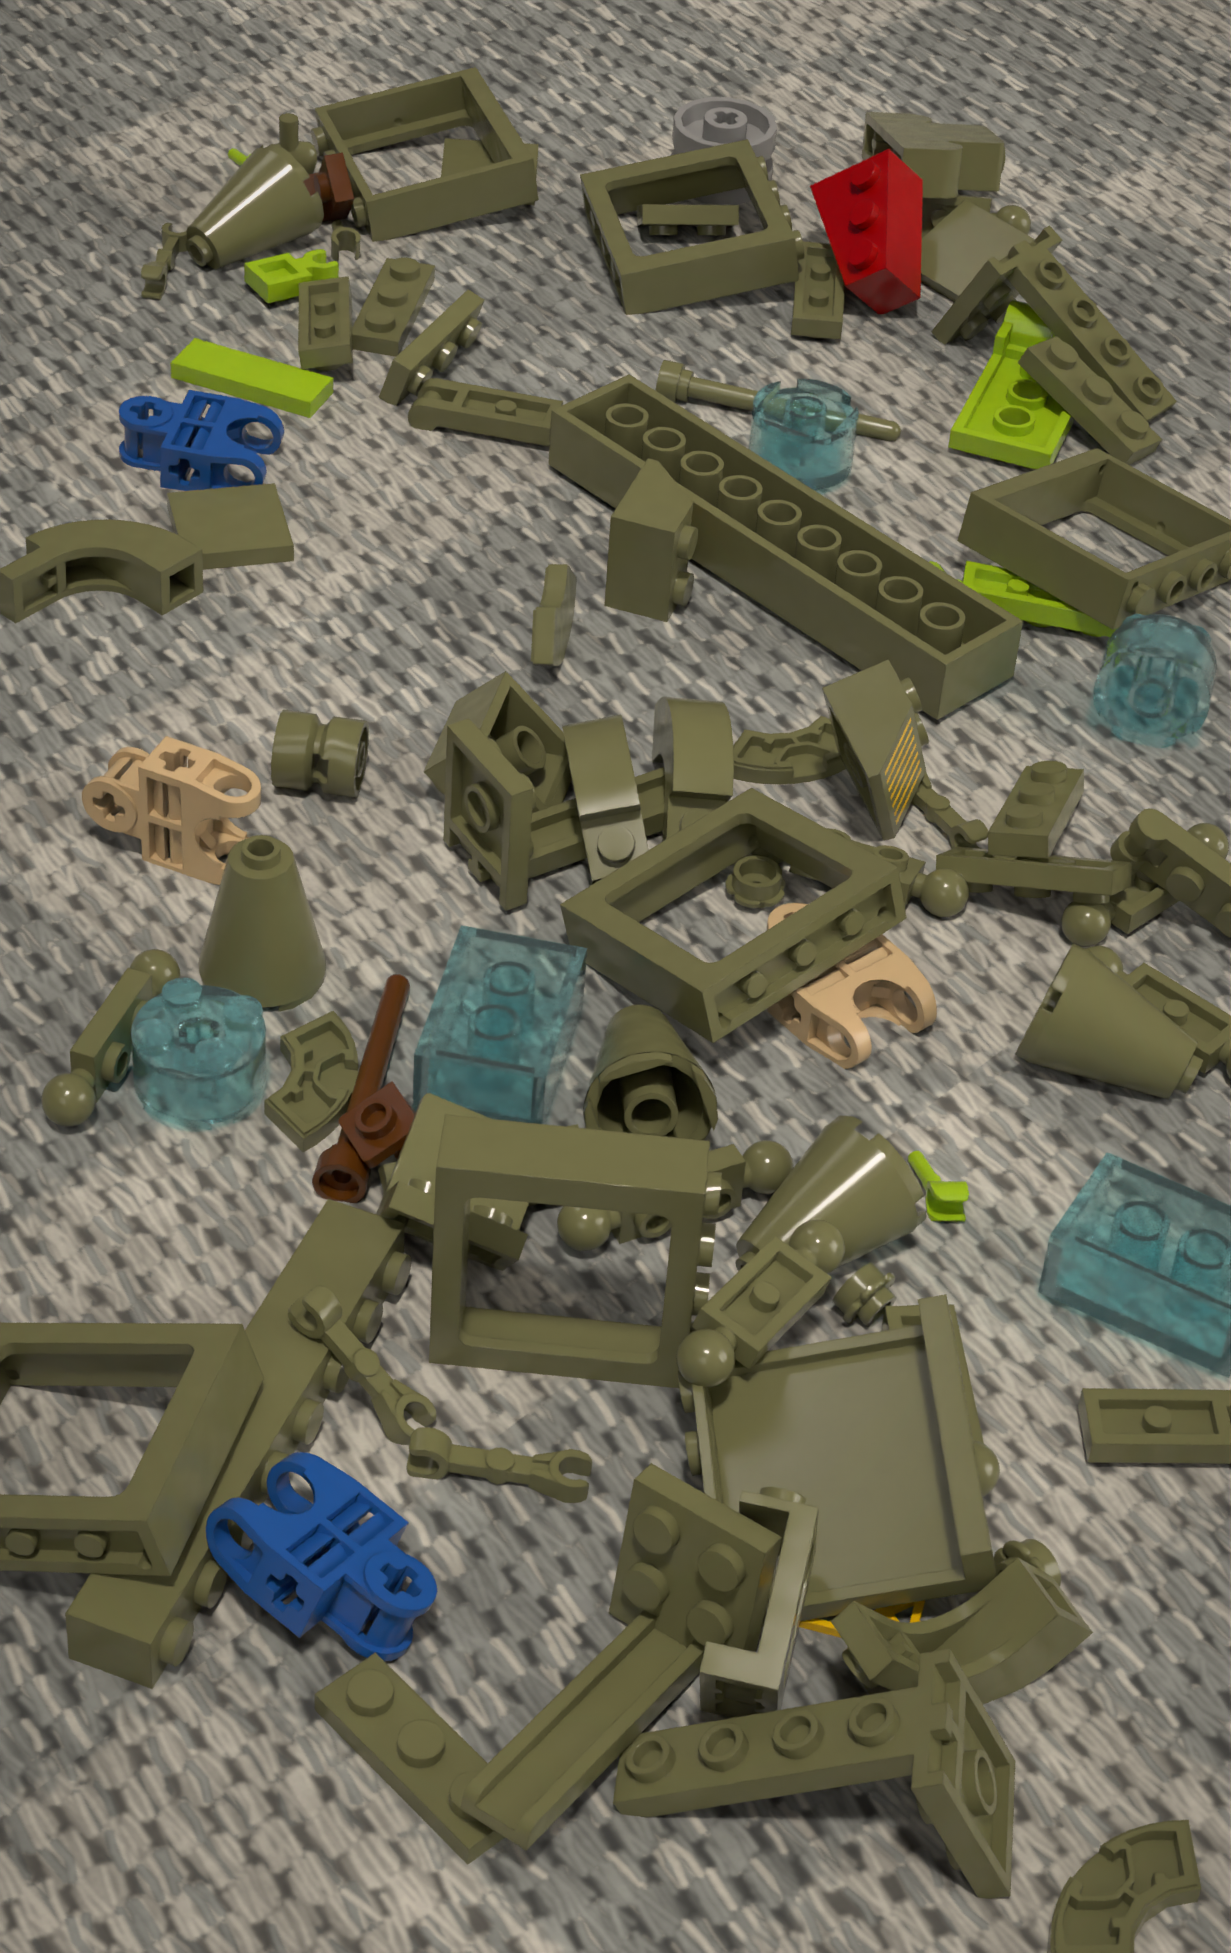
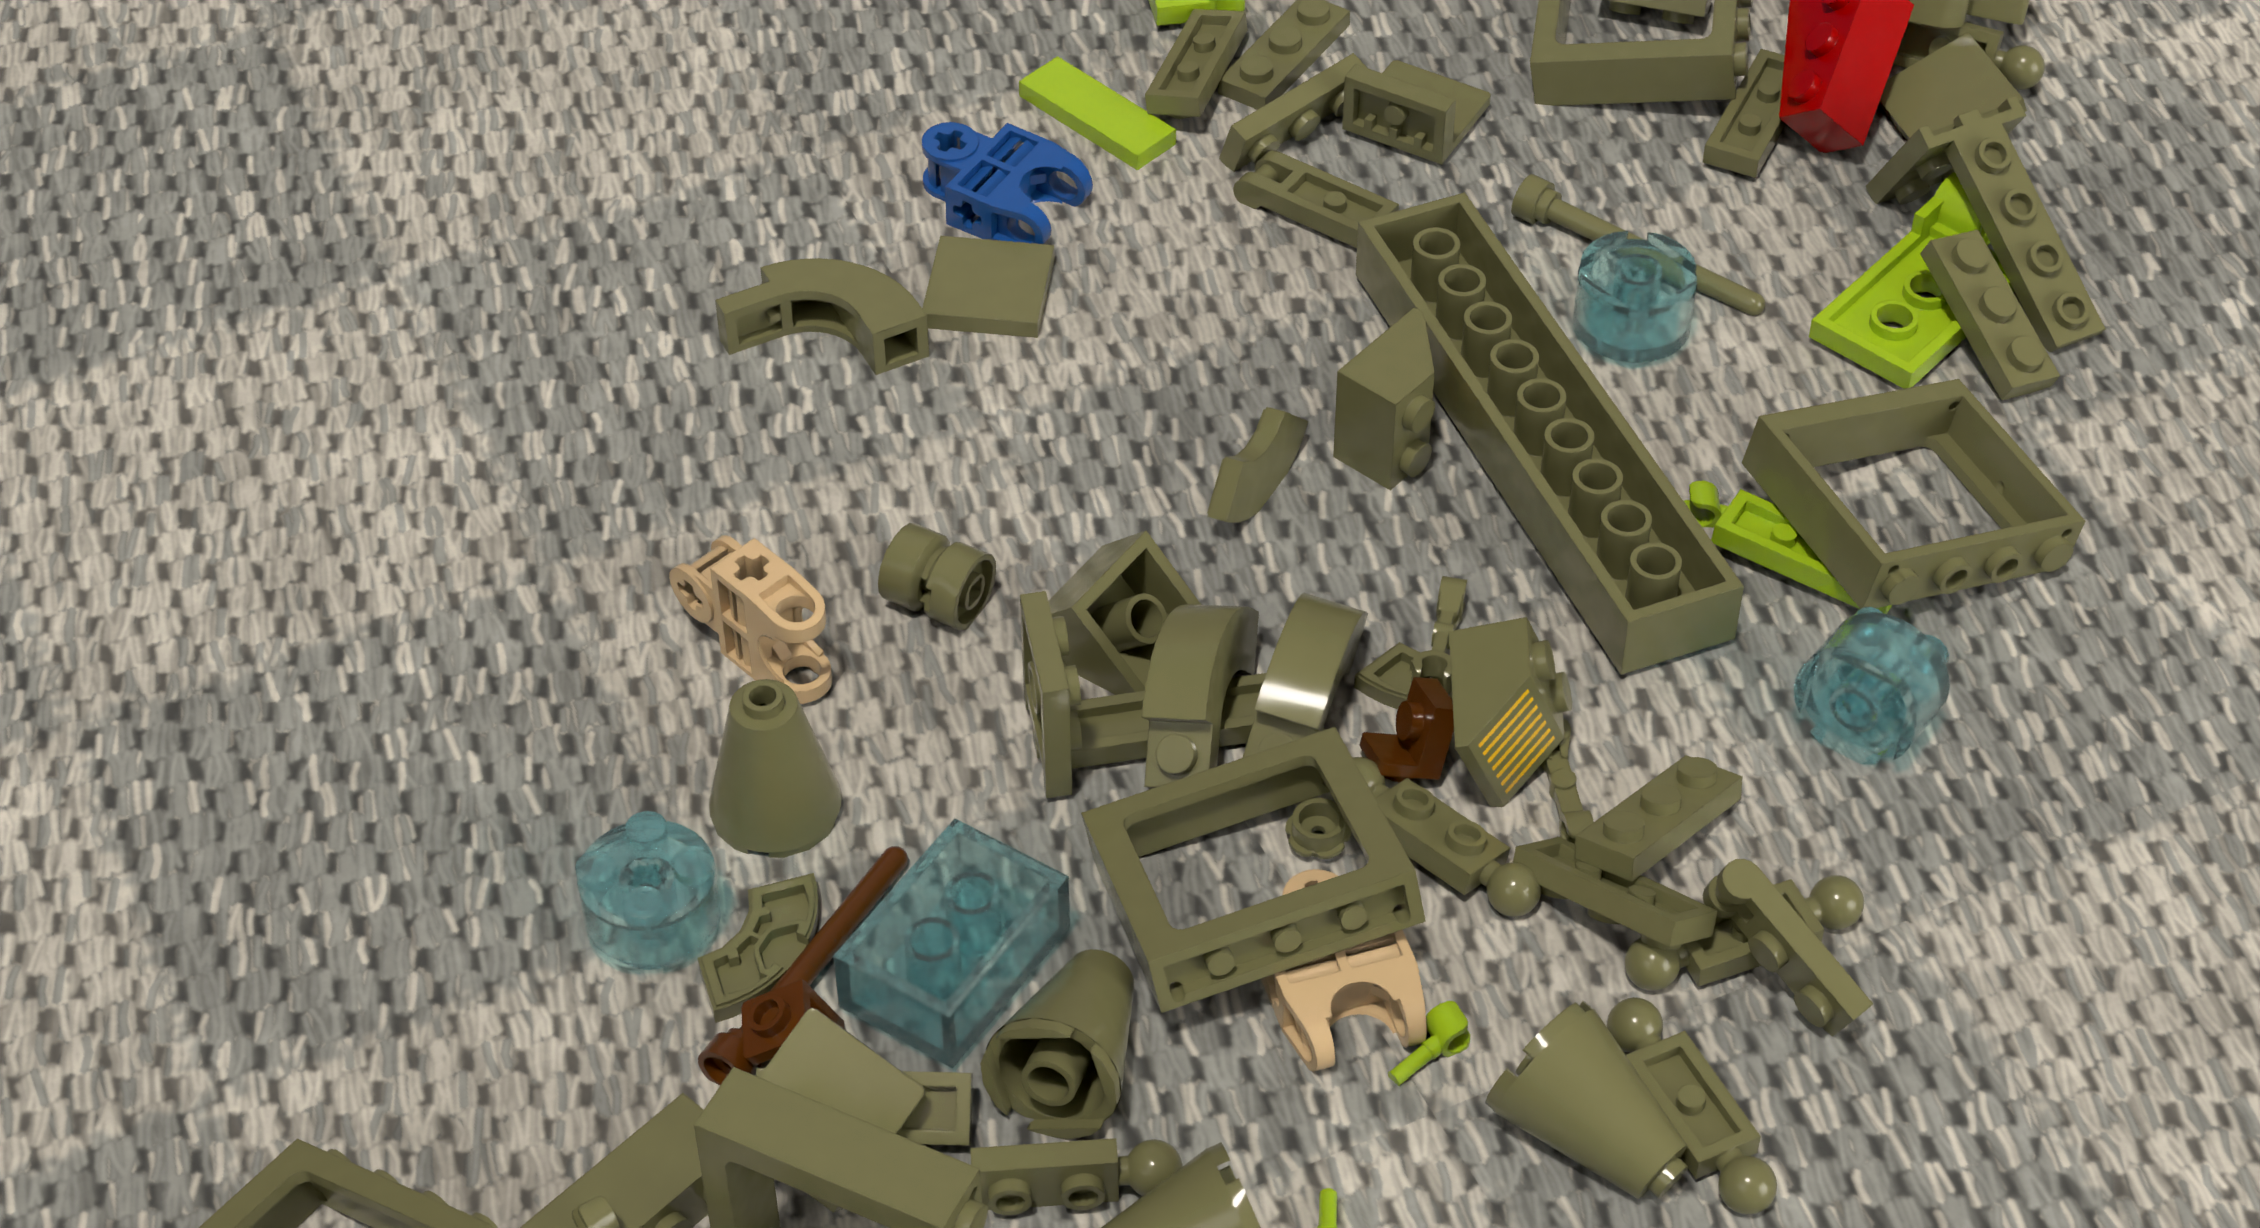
camera: 25 degrees right, 5 degrees up
(105, 1045) = (550, 869): olive plate -> none
(530, 331) = (1411, 108): none -> olive bracket
(787, 732) = (1449, 614): none -> olive piece
(813, 781) = (1422, 735): none -> reddish brown bracket
(949, 1018) = (1448, 1037): none -> lime hand

